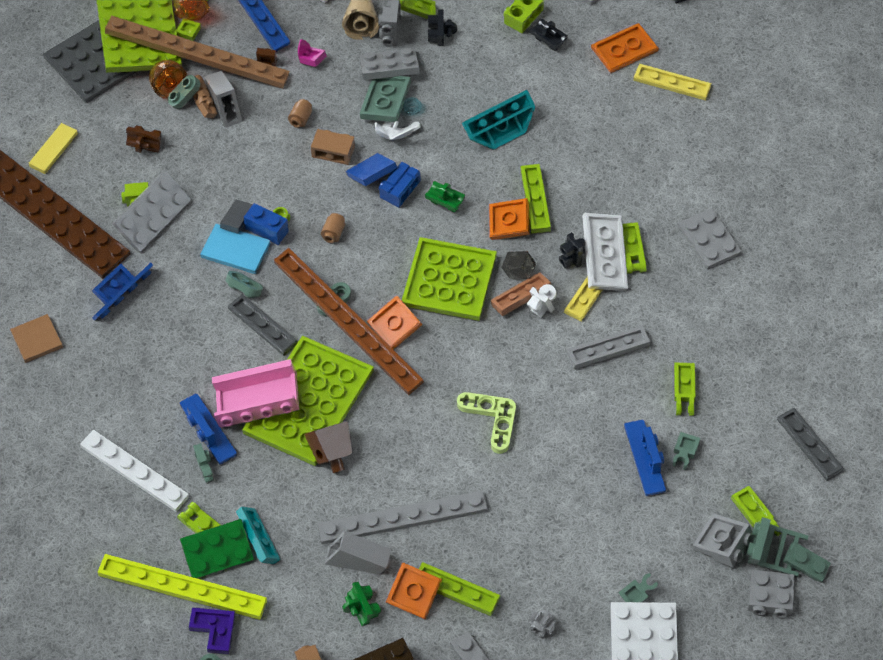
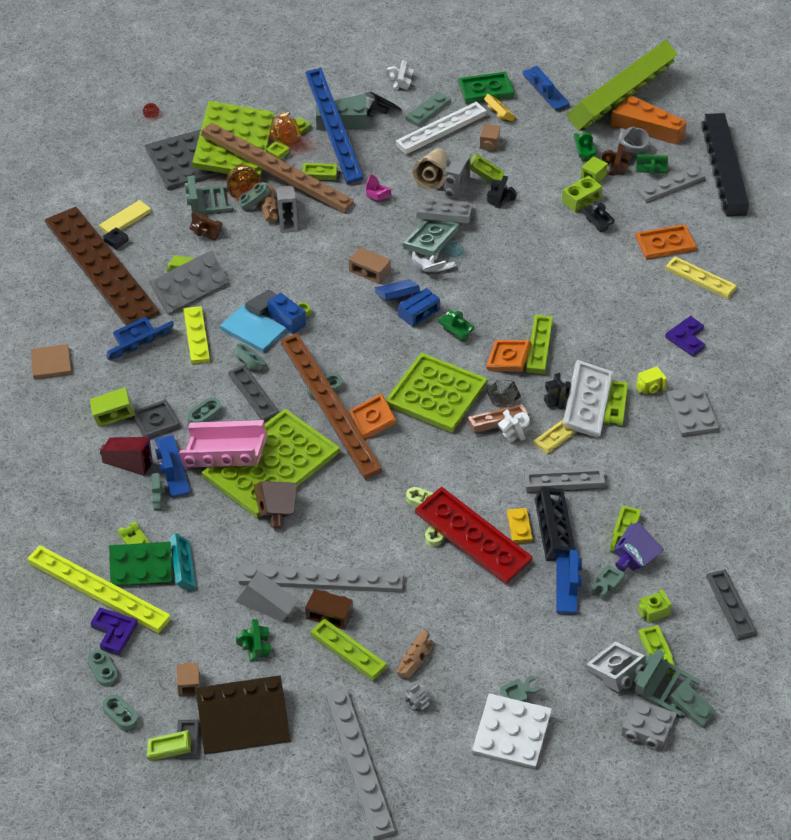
camera: 15 degrees right, 10 degrees down
(34, 9) = (150, 110): none -> clear red plate
(52, 175) = (115, 238): none -> black plate
(122, 108) = (196, 198): none -> sand green plate
(122, 377) = (112, 407): none -> lime brick
(134, 470) = (94, 485): white plate -> none
(158, 428) = (128, 453): none -> dark red slope
(171, 379) = (156, 419): none -> dark grey tile
(179, 270) = (196, 335): none -> neon yellow plate
(217, 359) = (202, 413): none -> sand green plate
(242, 44) = (320, 171): none -> lime plate
(266, 56) = (337, 183): reddish brown plate -> none
(300, 113) = (350, 233): medium nougat brick -> none
(333, 228) = (345, 329): medium nougat brick -> none
(414, 590) = (307, 640): orange tile -> none
(423, 548) = (330, 607): none -> reddish brown brick
(501, 121) = (528, 275): teal wedge -> none
(524, 578) = (415, 655): none -> medium nougat hinge
(539, 432) = (473, 535): none -> red plate
(579, 409) = (519, 525): none -> yellow plate
(608, 399) = (546, 517): none -> black fence
(660, 215) = (651, 381): none -> neon yellow brick
(675, 155) = (684, 336): none -> dark purple plate
(704, 408) = (636, 548): none -> dark purple torso
(746, 466) = (654, 606): none -> lime brick

